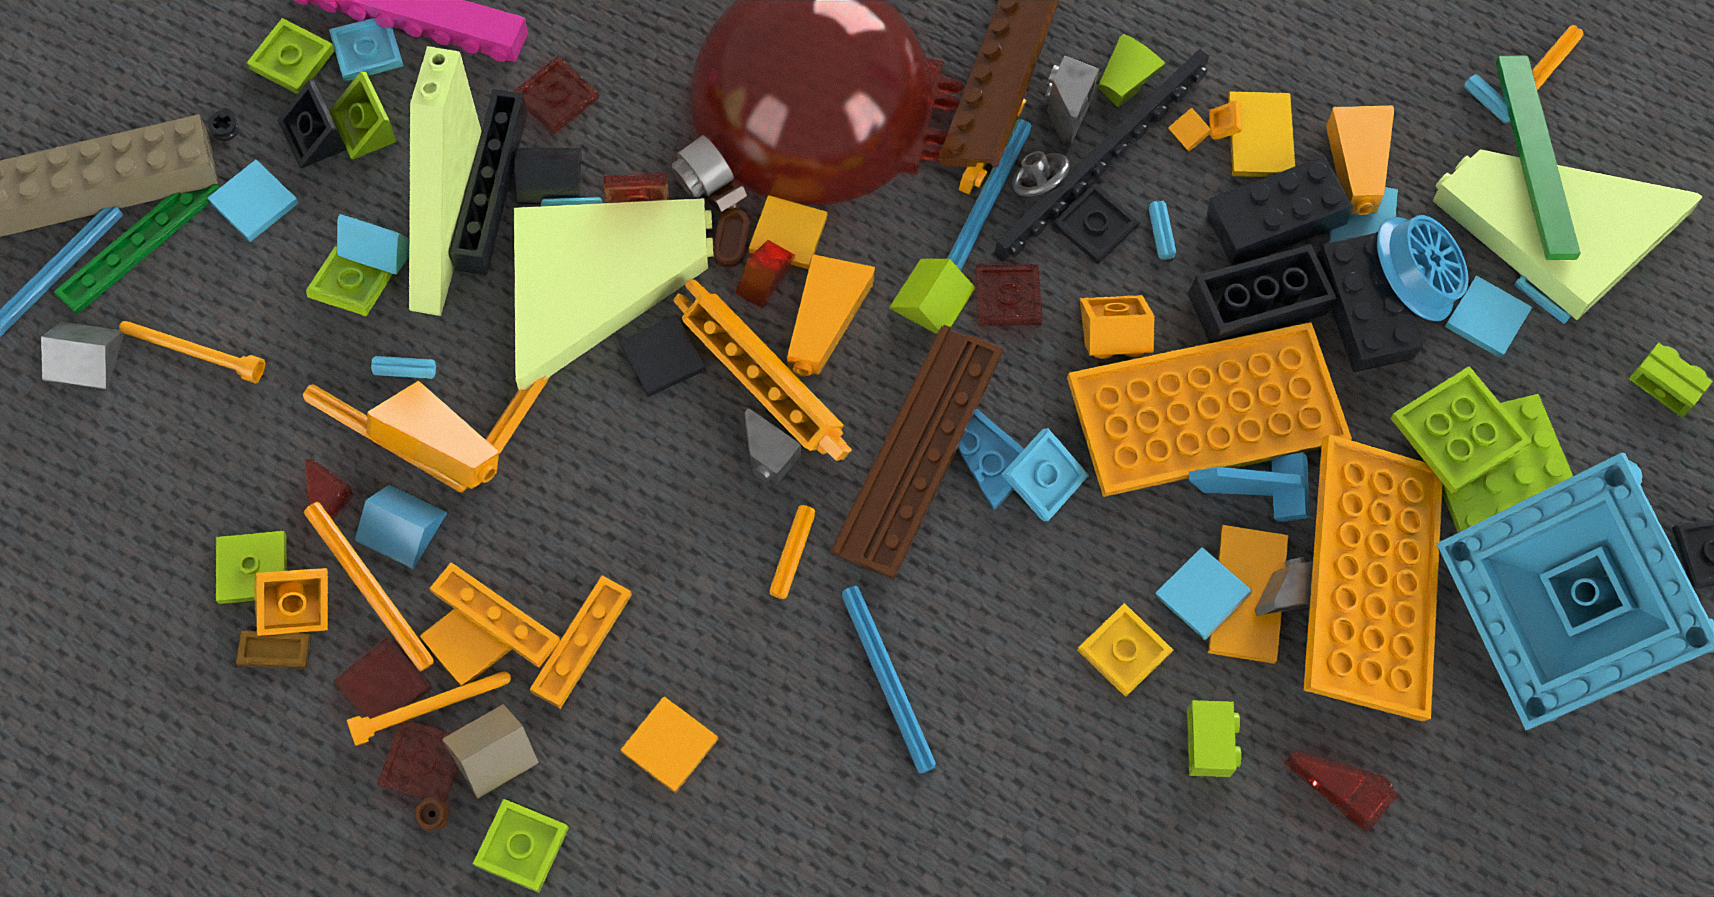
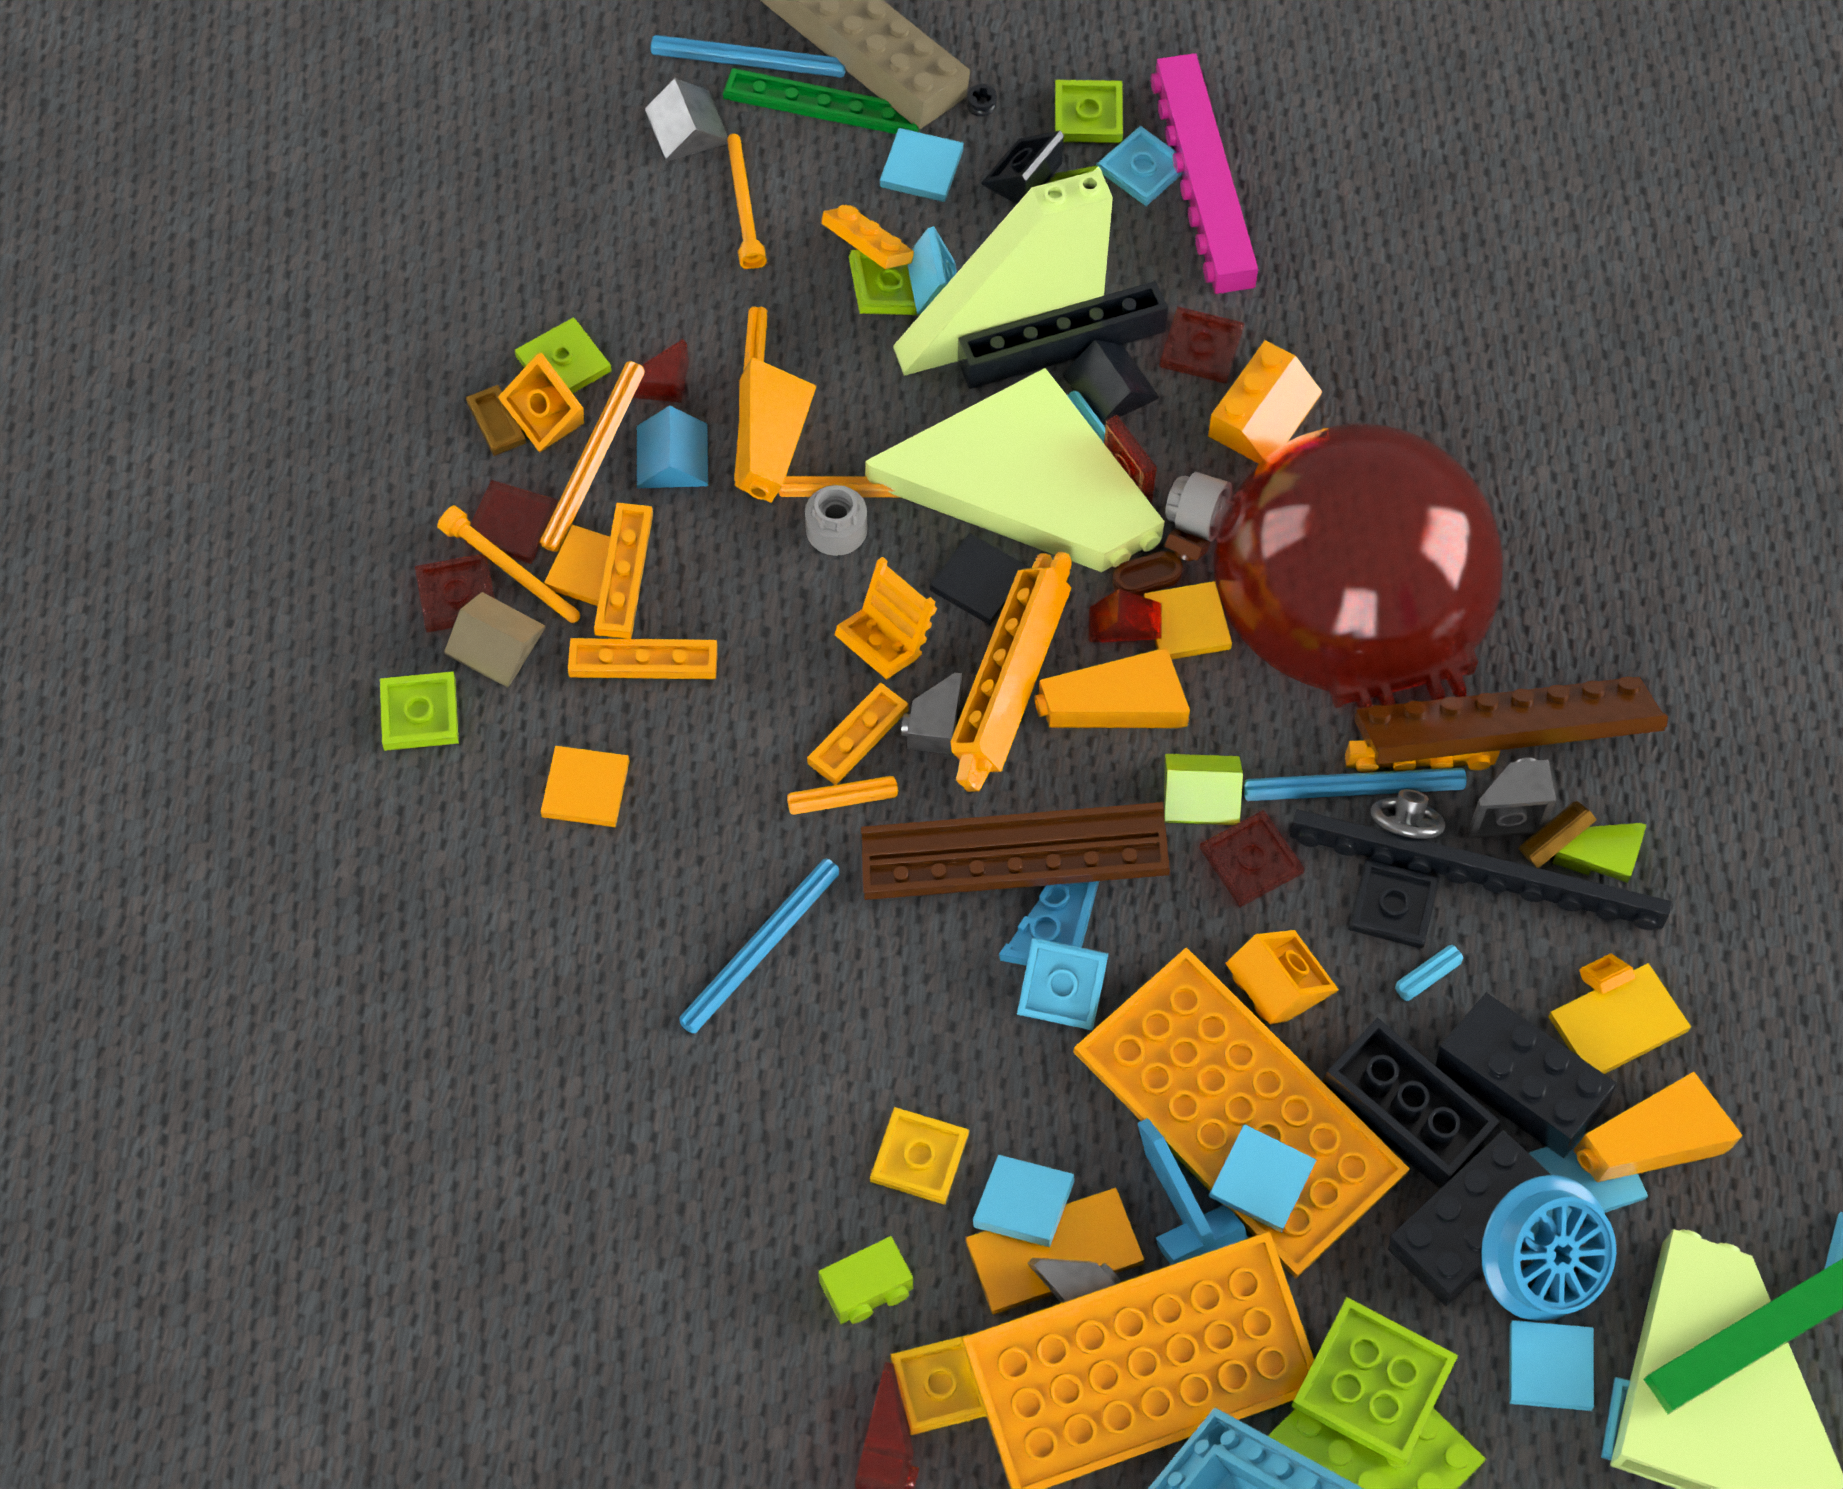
camera: 65 degrees right, 5 degrees down
(300, 272) = (867, 236): none -> light orange plate
(403, 367) = (830, 372): medium azure axle -> none
(423, 816) = (407, 616): reddish brown plate -> none
(544, 415) = (836, 520): none -> light grey piece
(639, 81) = (1264, 404): none -> light orange slope
(670, 438) = (890, 623): none -> light orange plate
(747, 512) = (858, 734): none -> light orange plate
(1109, 89) = (1557, 834): none -> pearl gold tile
(1190, 129) = (1571, 944): light orange tile -> none
(1273, 420) = (1262, 1178): none -> medium azure tile
(1313, 725) = (937, 1386): none -> yellow tile

